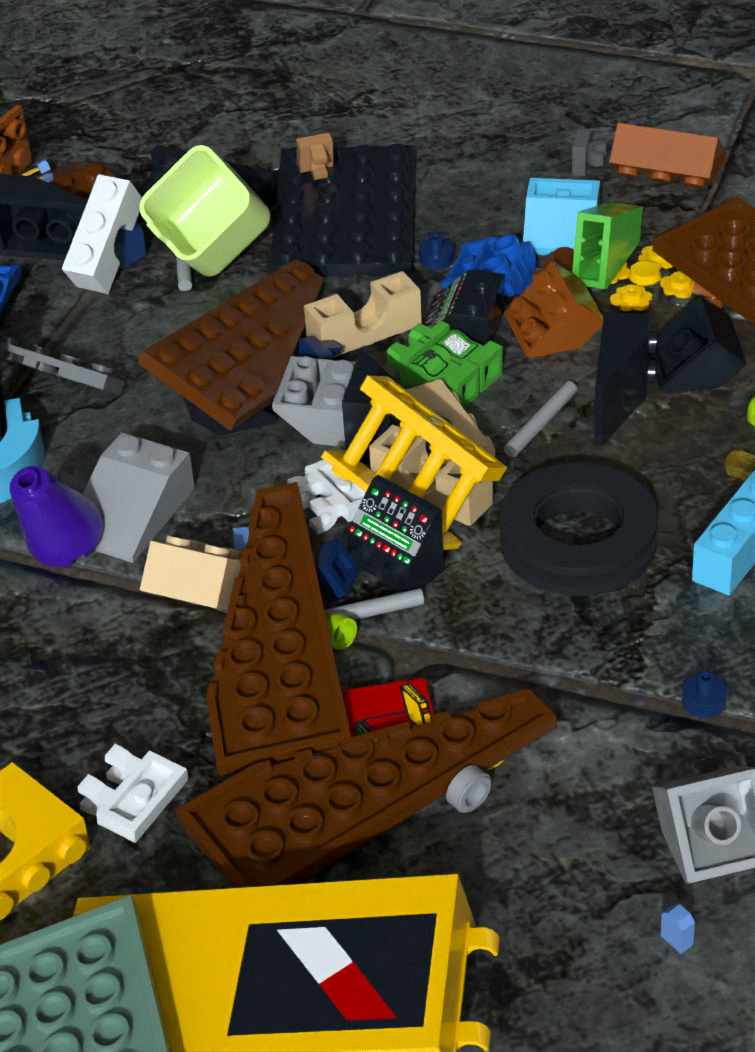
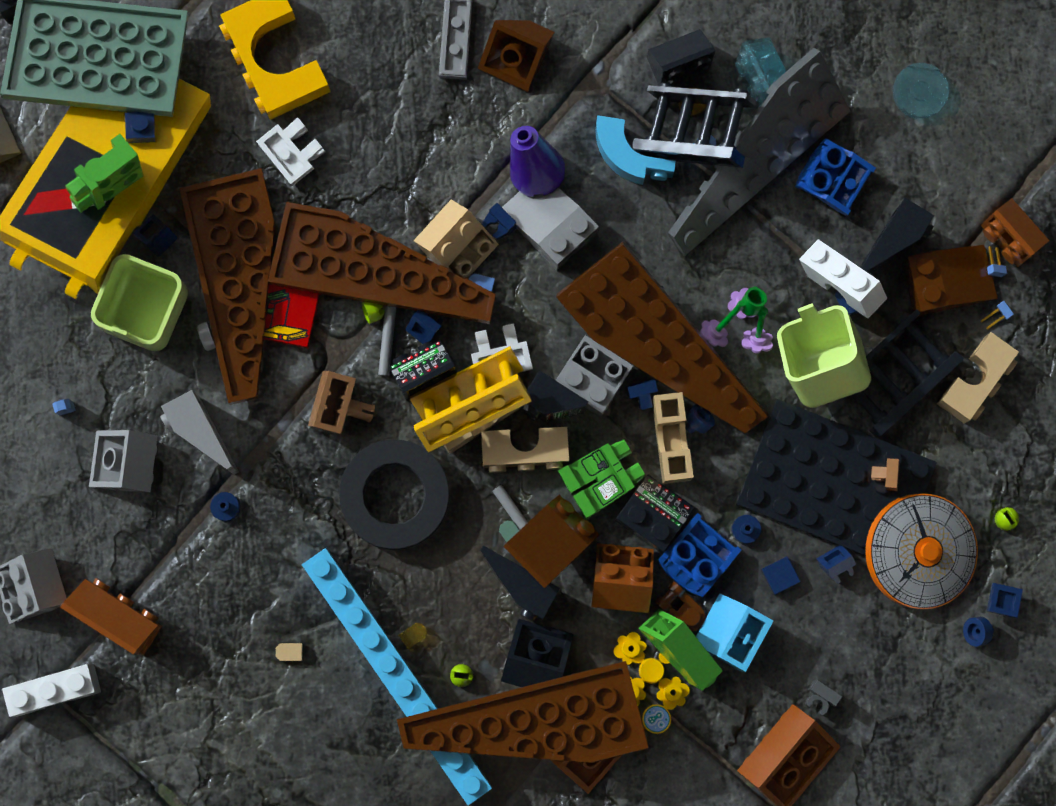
camera: 105 degrees right, 40 degrees up
(87, 153) = (1005, 311): none -> medium blue piece
(144, 133) = (994, 359): none -> tan arch
(147, 529) = (505, 222): none -> dark blue tile
(167, 279) = (743, 303): none -> plant
(172, 942) = (139, 127): none -> dark blue plate
(277, 906) = (105, 176): none -> bright green hips
(316, 99) = (1003, 522): none -> lime hinge
(387, 129) = (921, 551): none -> light grey dish
(405, 72) = (1004, 600): none -> dark blue tile
(434, 179) = (836, 562): none -> dark blue tile
(447, 81) = (978, 631): none -> dark blue tile
(473, 217) = (780, 575): none -> dark blue tile
(474, 835) = (139, 302): none -> yellowish green piece
(491, 613) = (335, 402): none -> medium nougat brick
(545, 354) = (551, 540): none -> reddish brown slope
(560, 423) = (508, 530): none -> sand green piece
(610, 731) = (192, 422): none -> light grey slope

